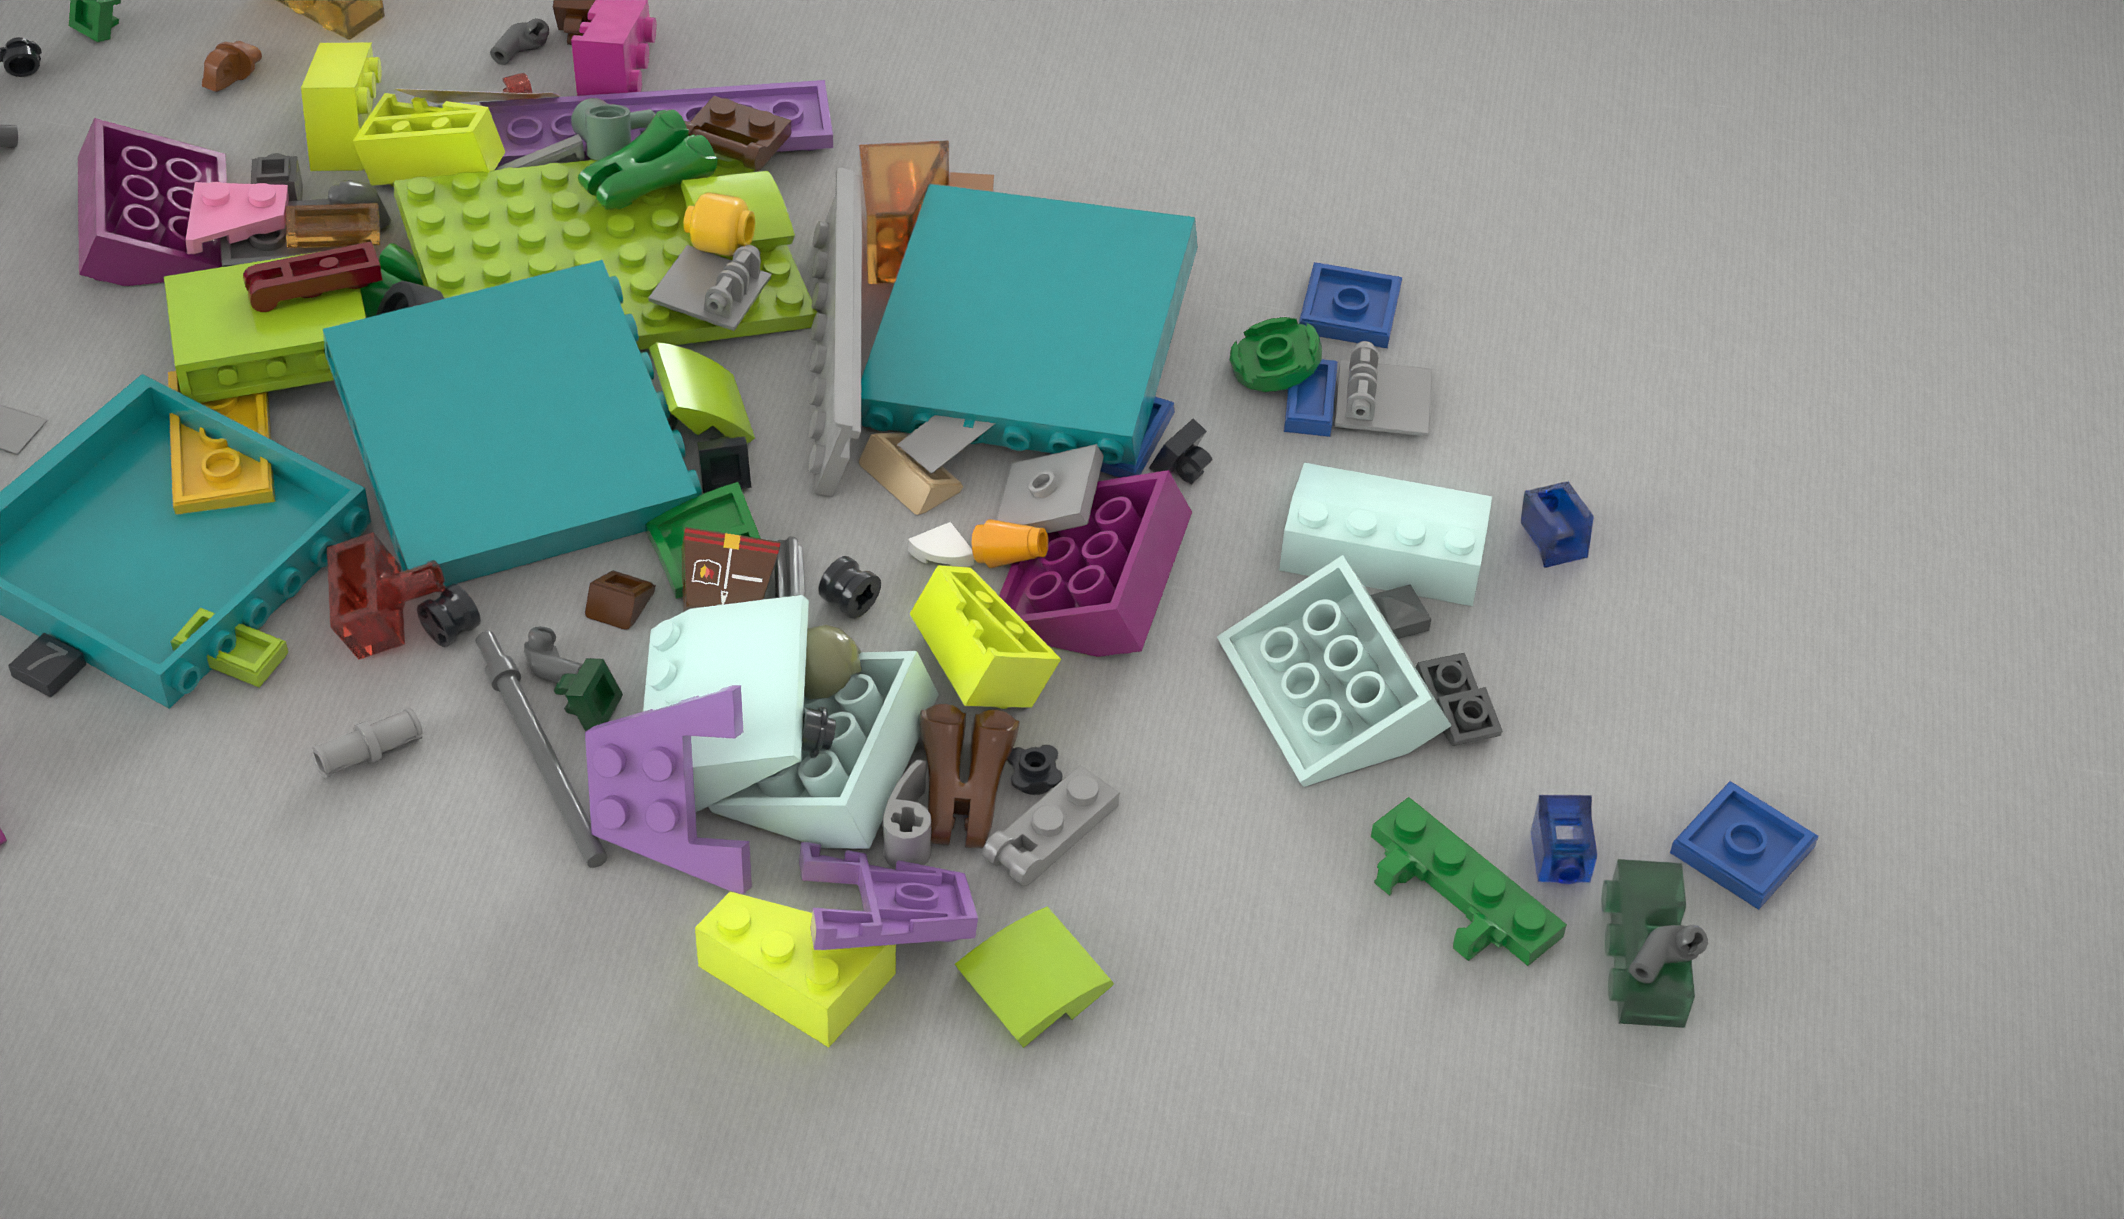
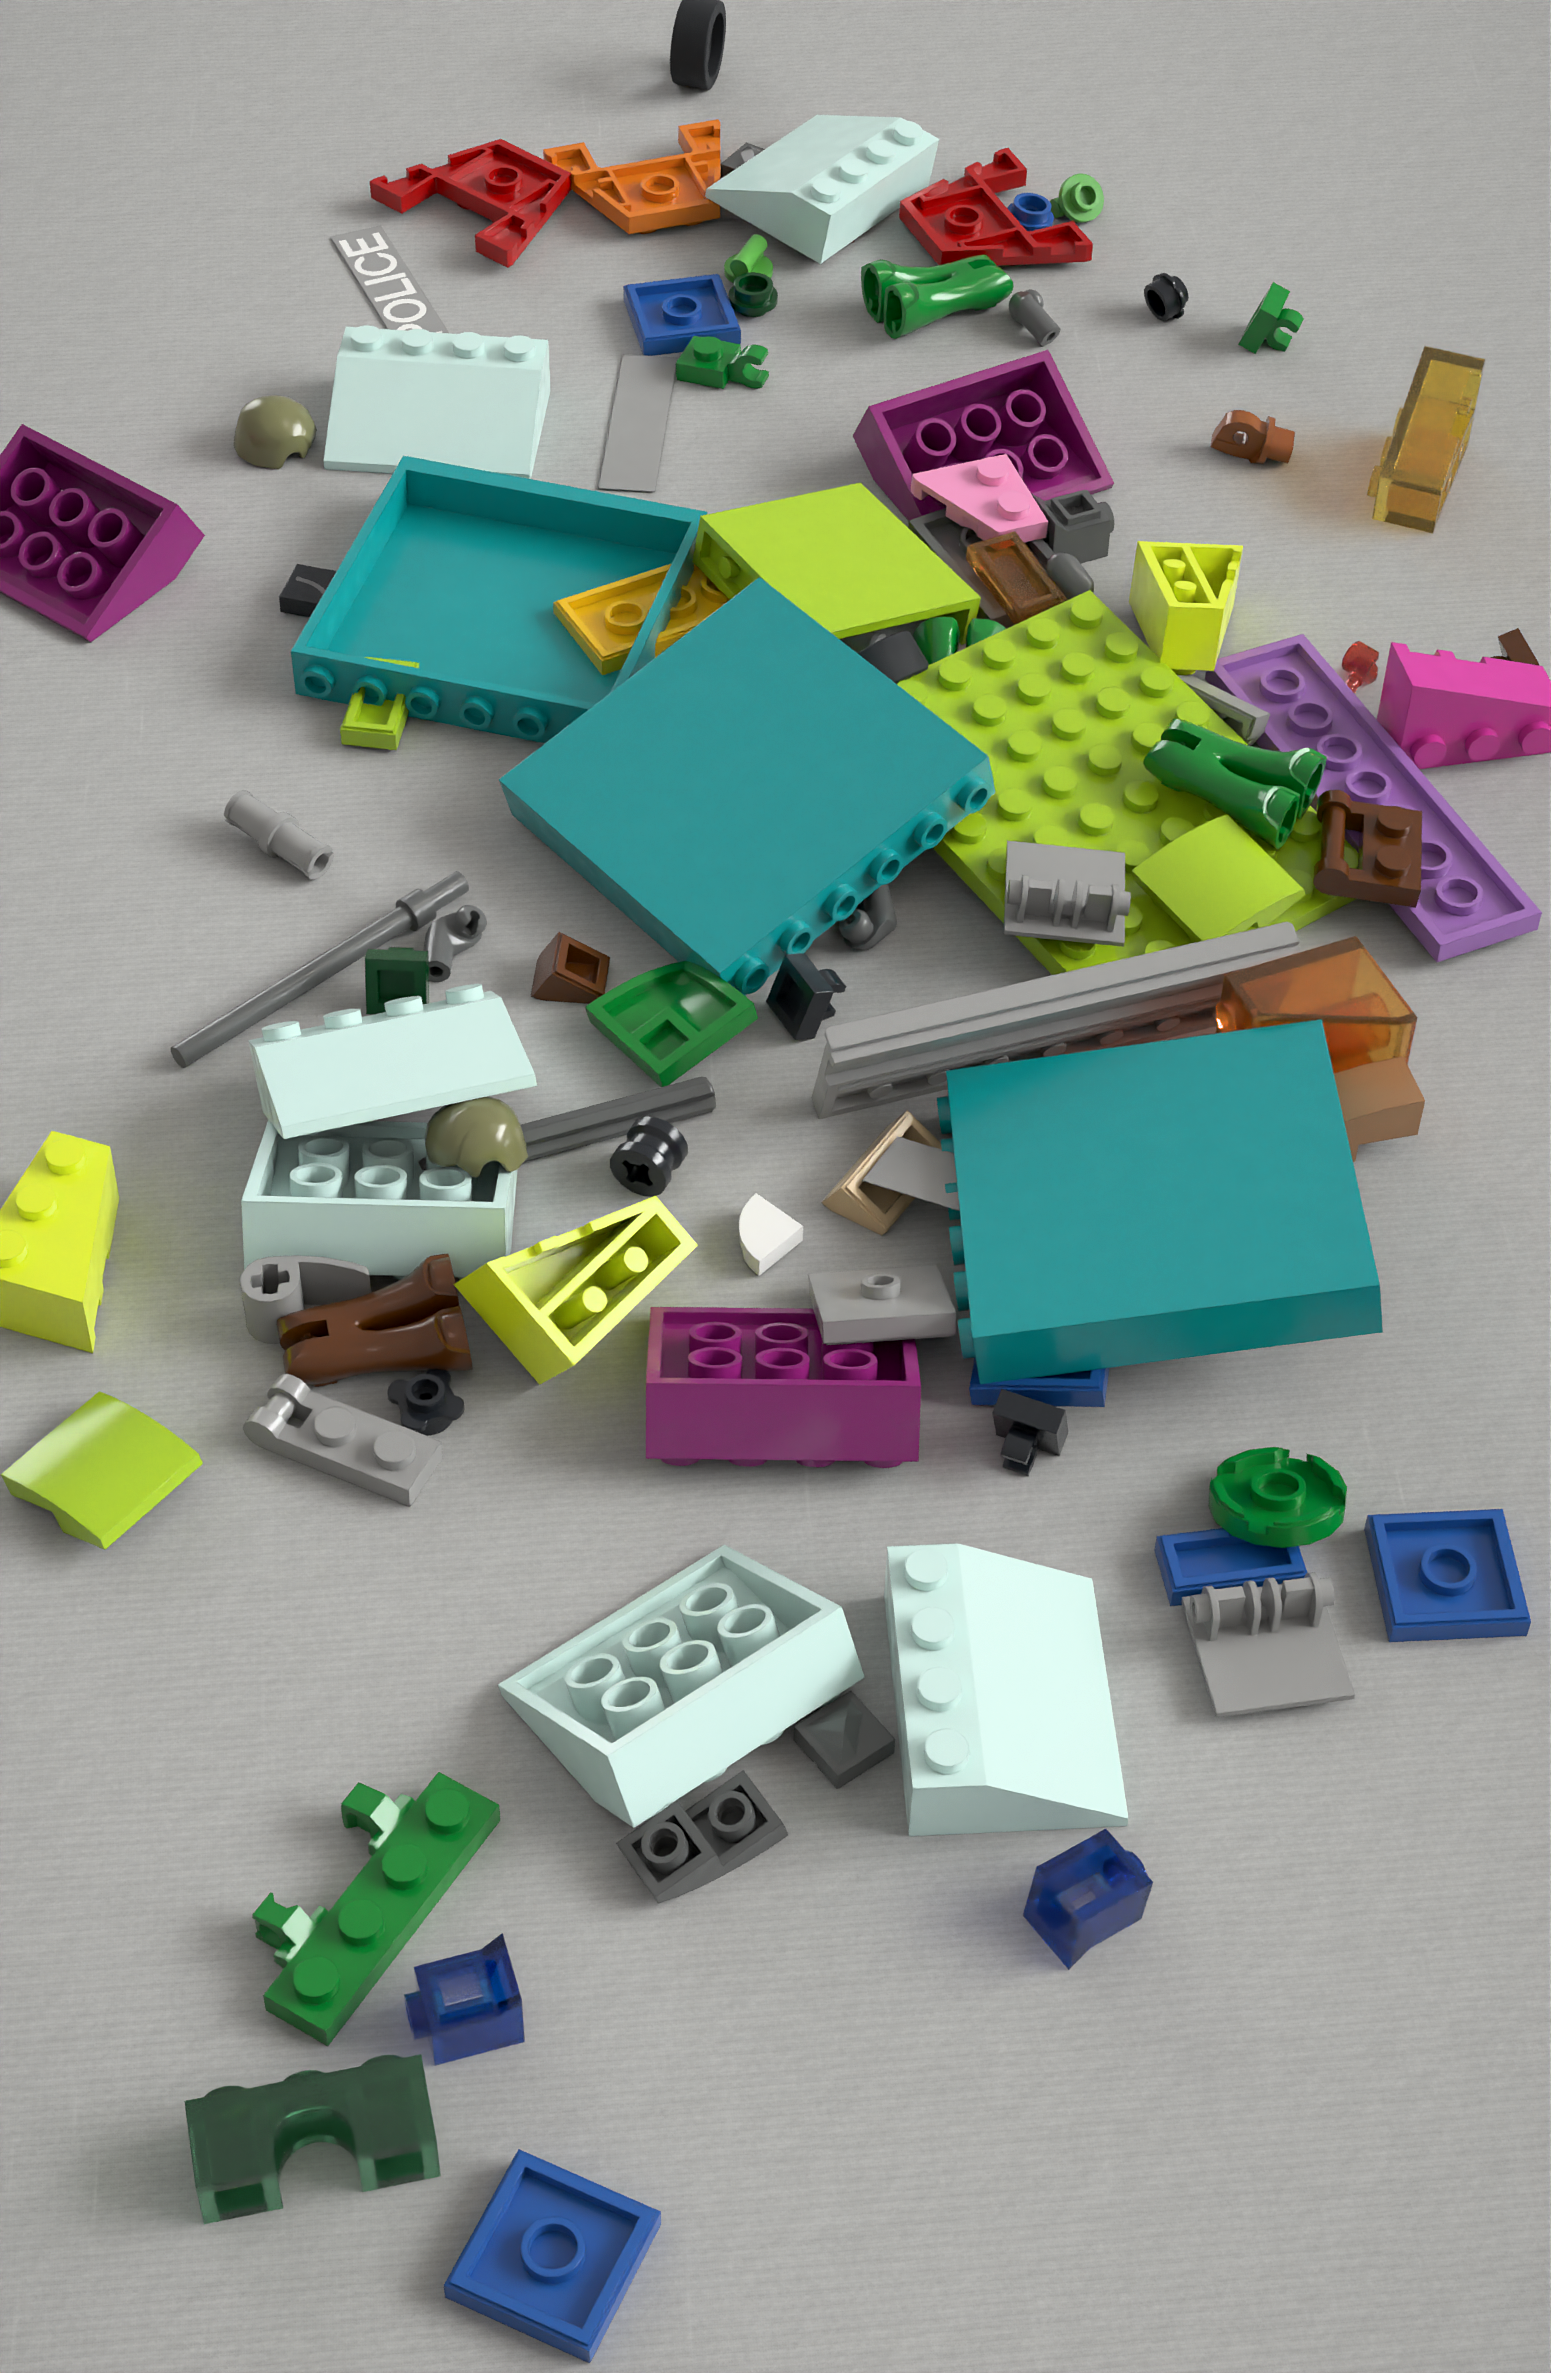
camera: 75 degrees right, 0 degrees up
(311, 275) = (889, 569): dark red plate -> none
(338, 102) = (1270, 515): neon yellow wedge -> none
(371, 592) = (461, 765): clear red brick -> none
(442, 96) = (1295, 616): yellow sticker -> none
(448, 615) = (474, 840): black wheel -> none
(520, 38) = (1458, 638): dark grey arm -> none
(606, 125) = (1294, 723): sand green piece -> none
(646, 786) = (251, 1021): medium lavender wing -> none
(700, 391) = (894, 939): lime slope -> none
(719, 224) = (1145, 855): yellow head -> none
(725, 568) = (595, 1034): reddish brown torso -> none
(817, 731) = (346, 1146): black plate -> none
(898, 904) = (144, 1316): medium lavender wing -> none
(1006, 543) = (778, 1281): light orange cone -> none
(1667, 946) = (257, 2124): dark grey arm -> none

